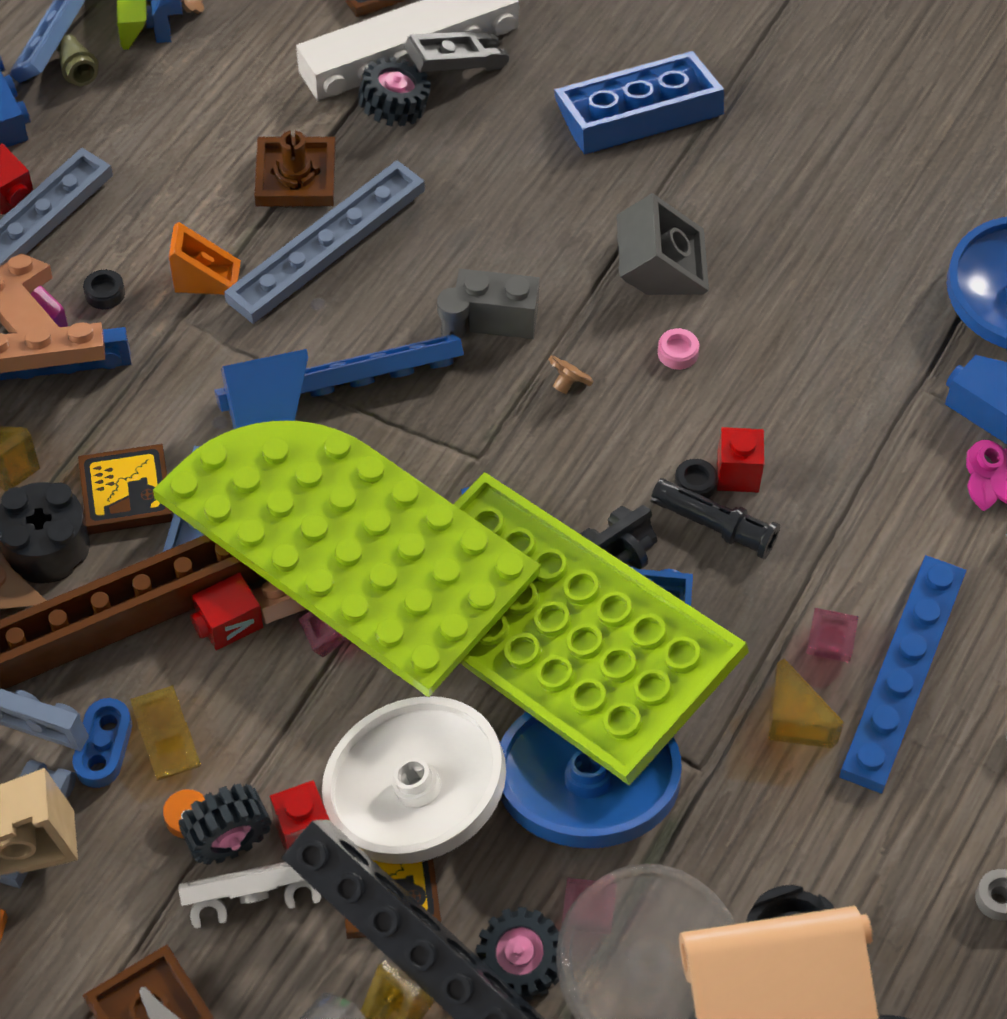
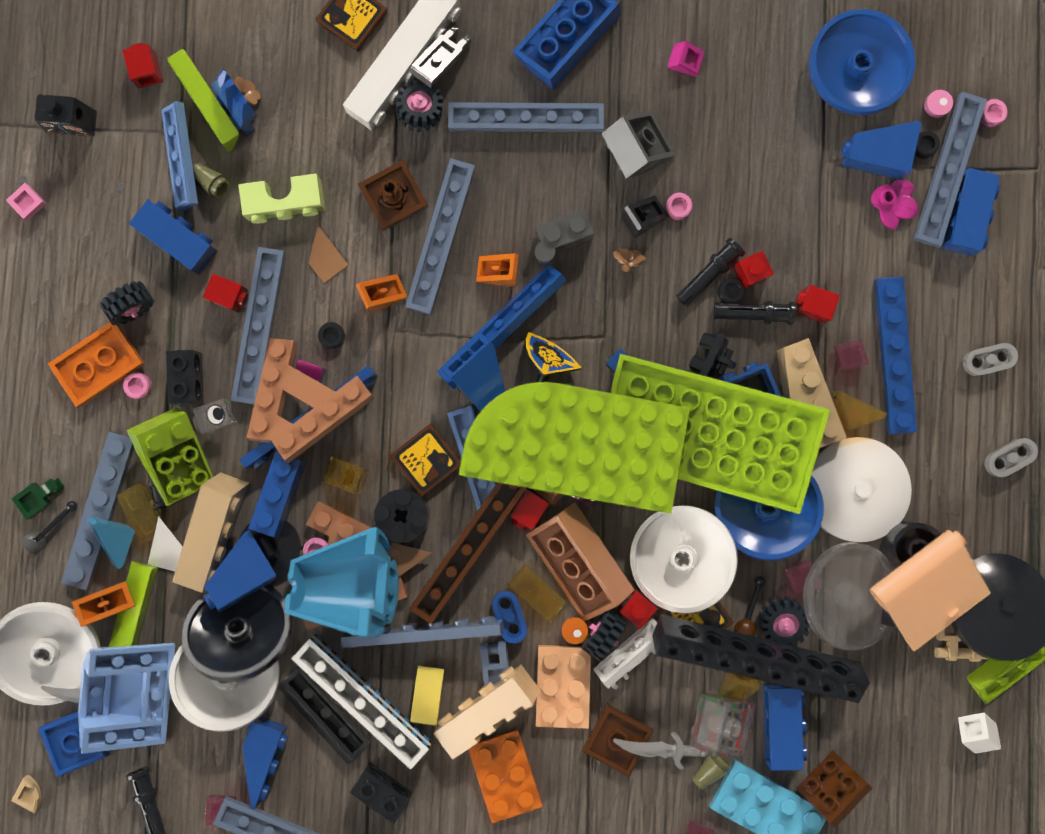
camera: 25 degrees left, 30 degrees up
(116, 887) = (563, 687): none -> light nougat plate
(159, 205) = (325, 258): none -> medium nougat sticker
(178, 125) = (304, 198): none -> yellowish green arch
(256, 708) = (580, 562): none -> nougat slope
(379, 432) = (548, 357): none -> shield
(384, 310) = (498, 269): none -> orange slope
(462, 931) = (746, 626): none -> hinge
(527, 162) = (526, 117): none -> sand blue plate
(619, 332) = (643, 215): none -> black slope
(694, 435) = (718, 264): none -> black pin
(735, 707) = (804, 382): none -> tan wedge
(751, 823) = (861, 488): none -> white dish
(786, 193) = (686, 58): none -> dark pink slope
(814, 544) = (816, 303): none -> red brick

